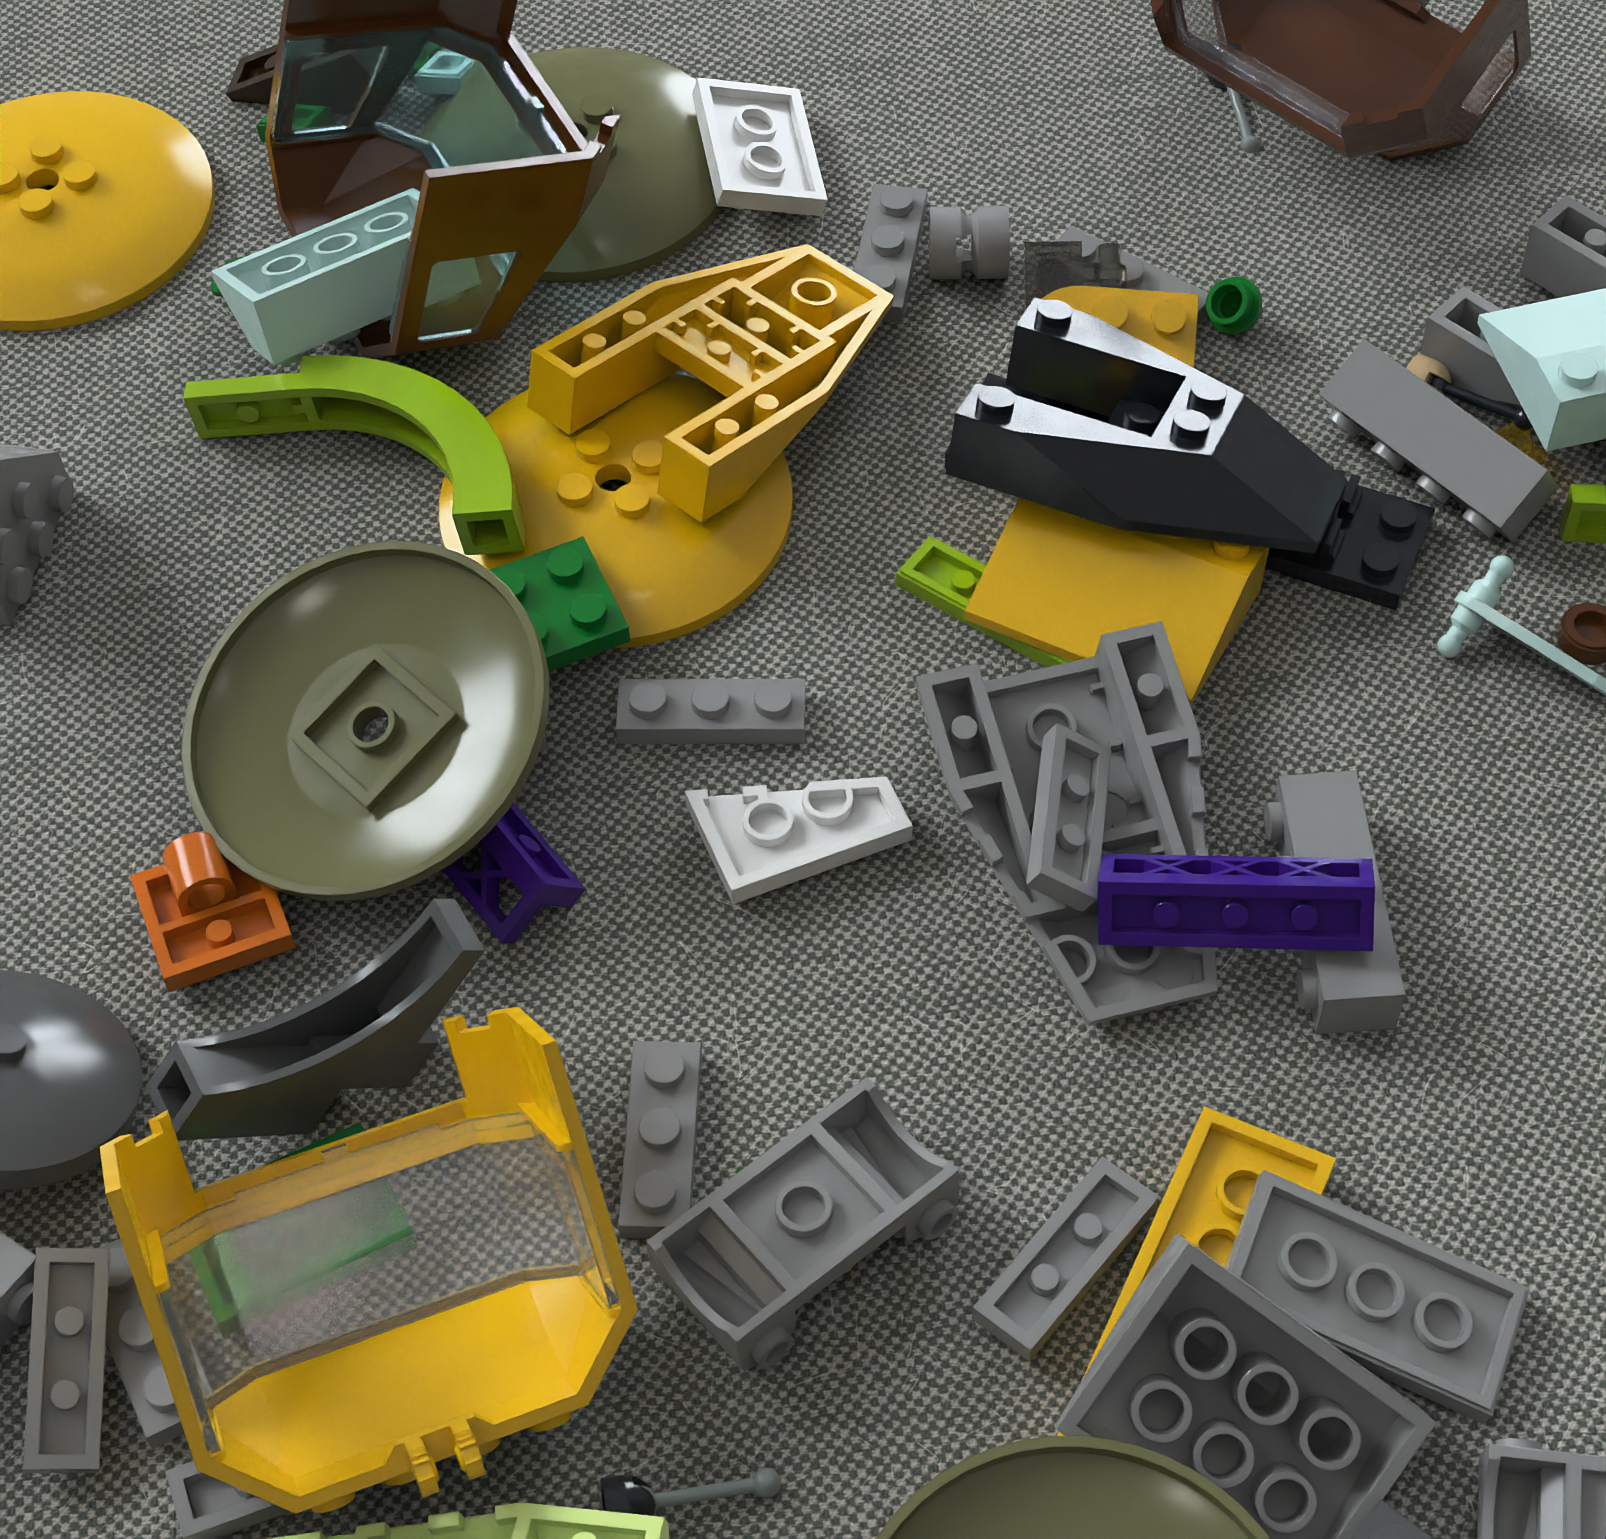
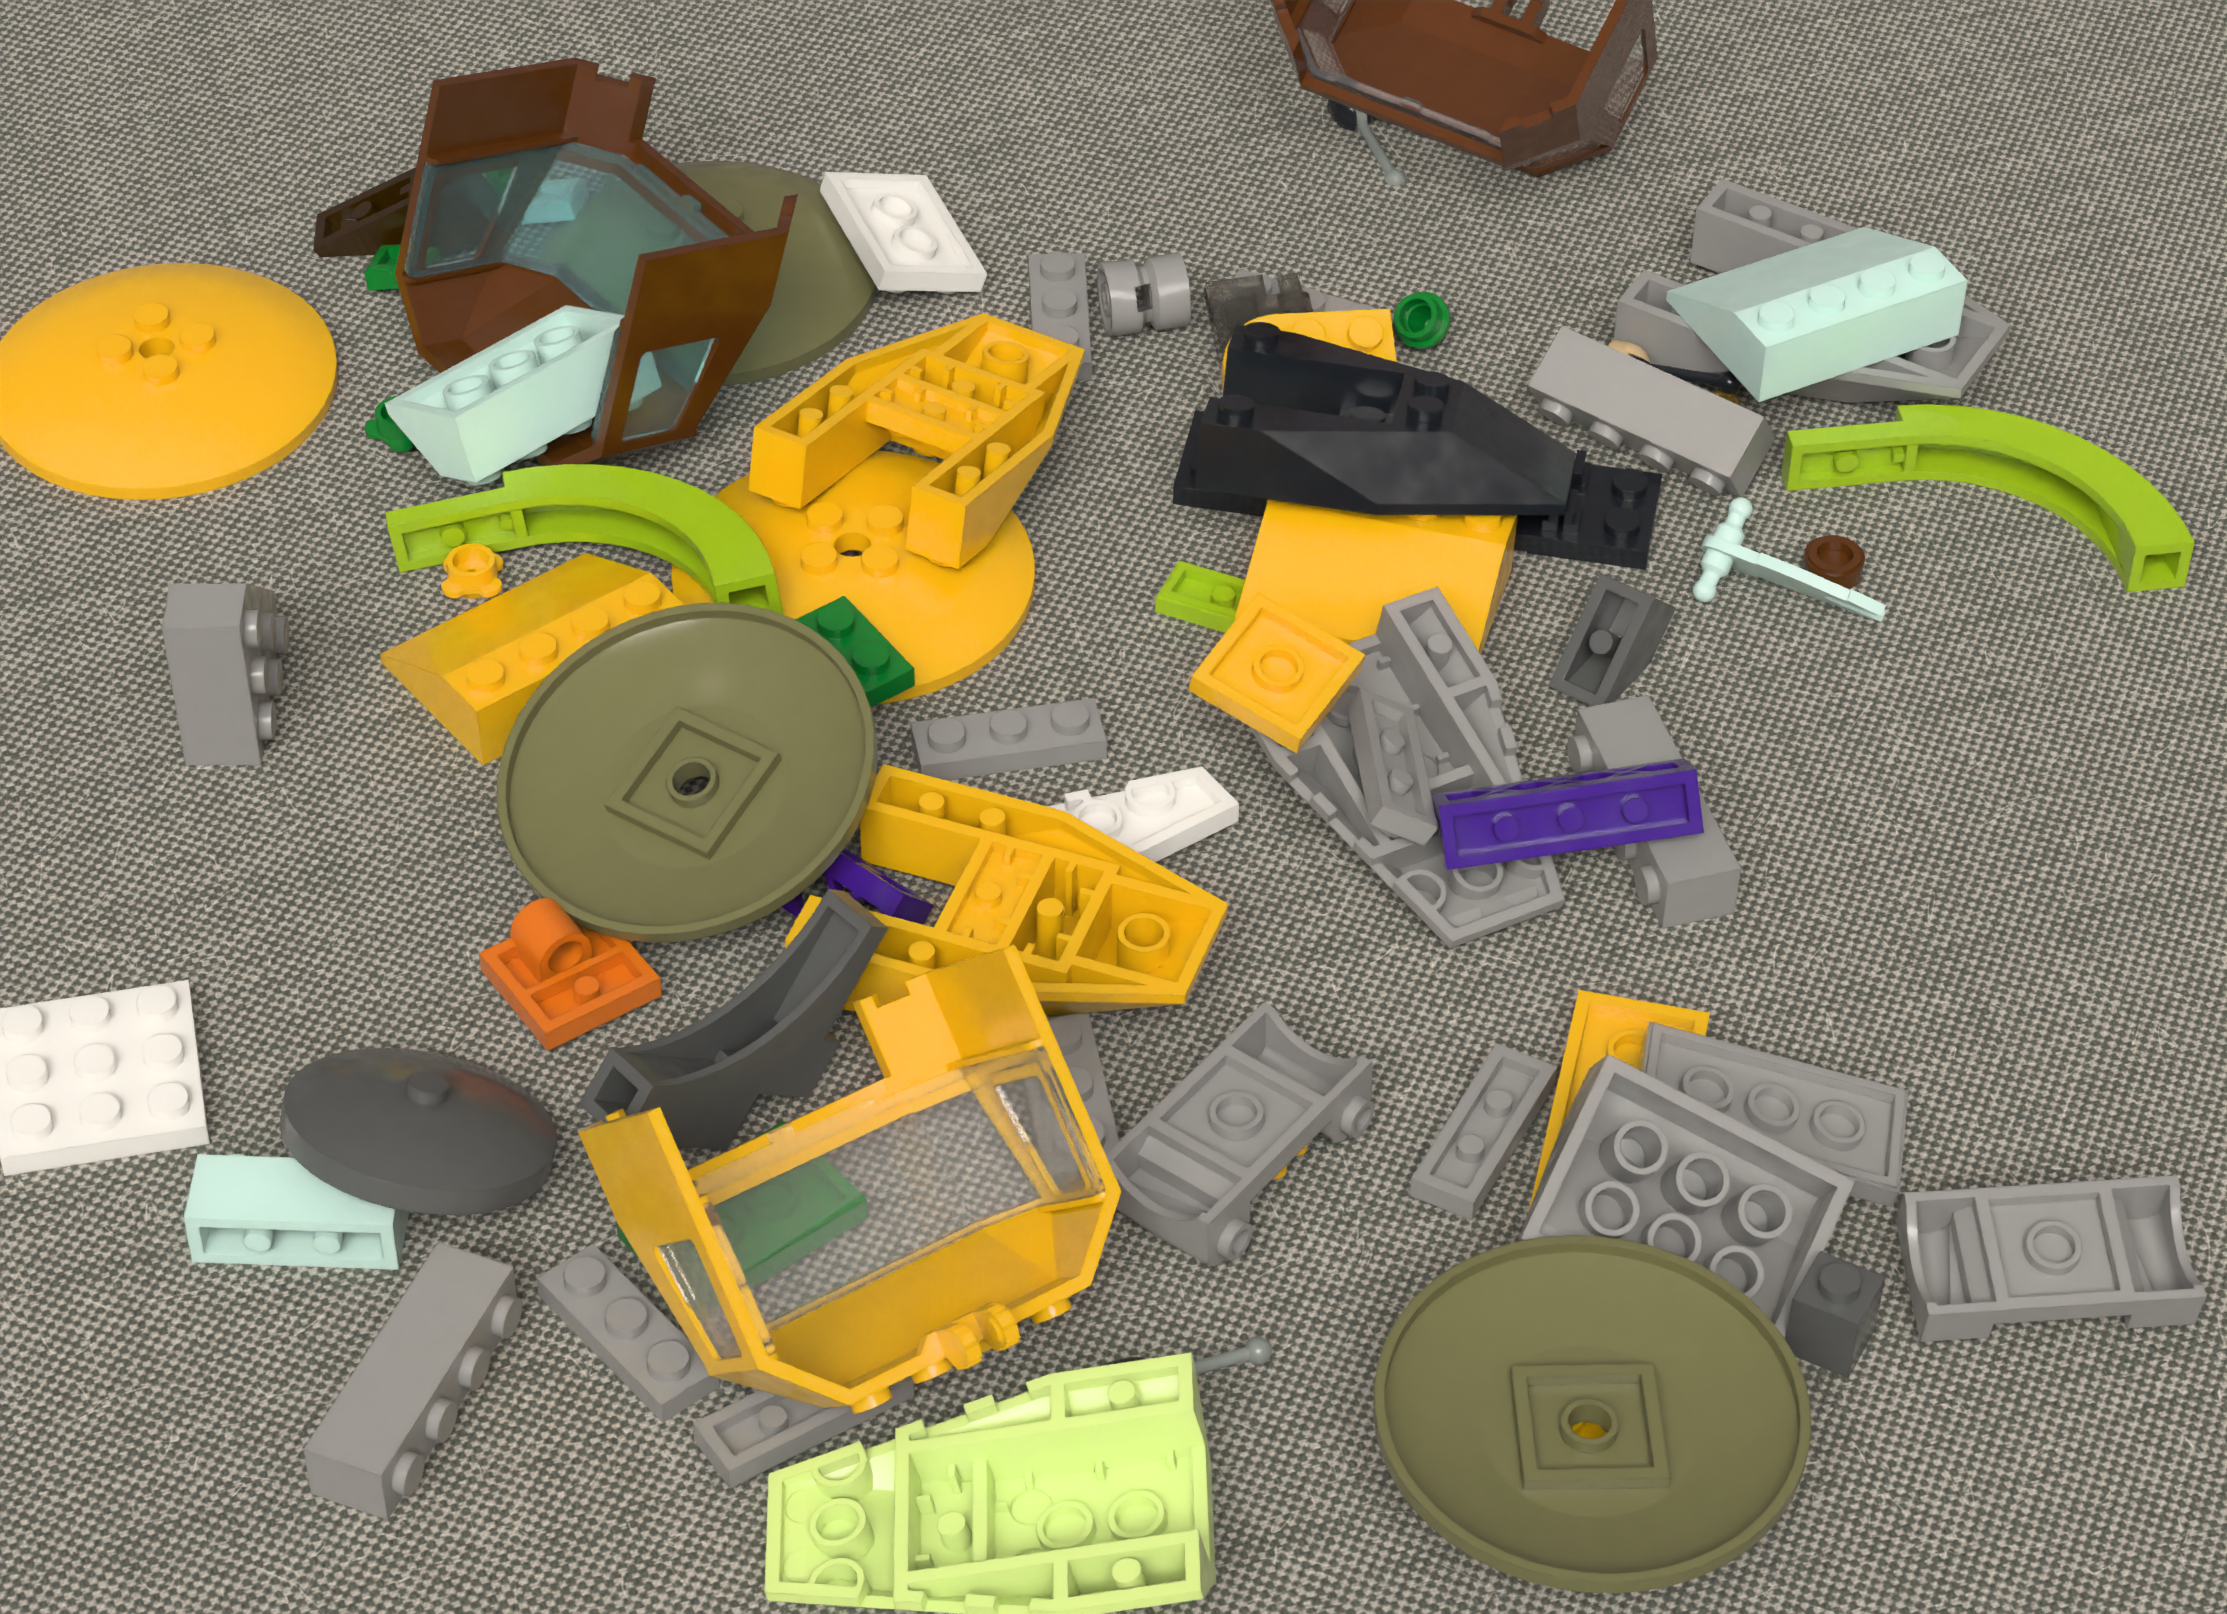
camera: 15 degrees left, 10 degrees down
(66, 1360) = (567, 1349): light grey plate -> none
(255, 537) = (493, 657): none -> yellow slope
(259, 451) = (472, 572): none -> yellow plate
(674, 939) = (1080, 907): none -> yellow wedge
(969, 700) = (1276, 672): none -> yellow plate
(1337, 696) = (1611, 642): none -> dark grey slope

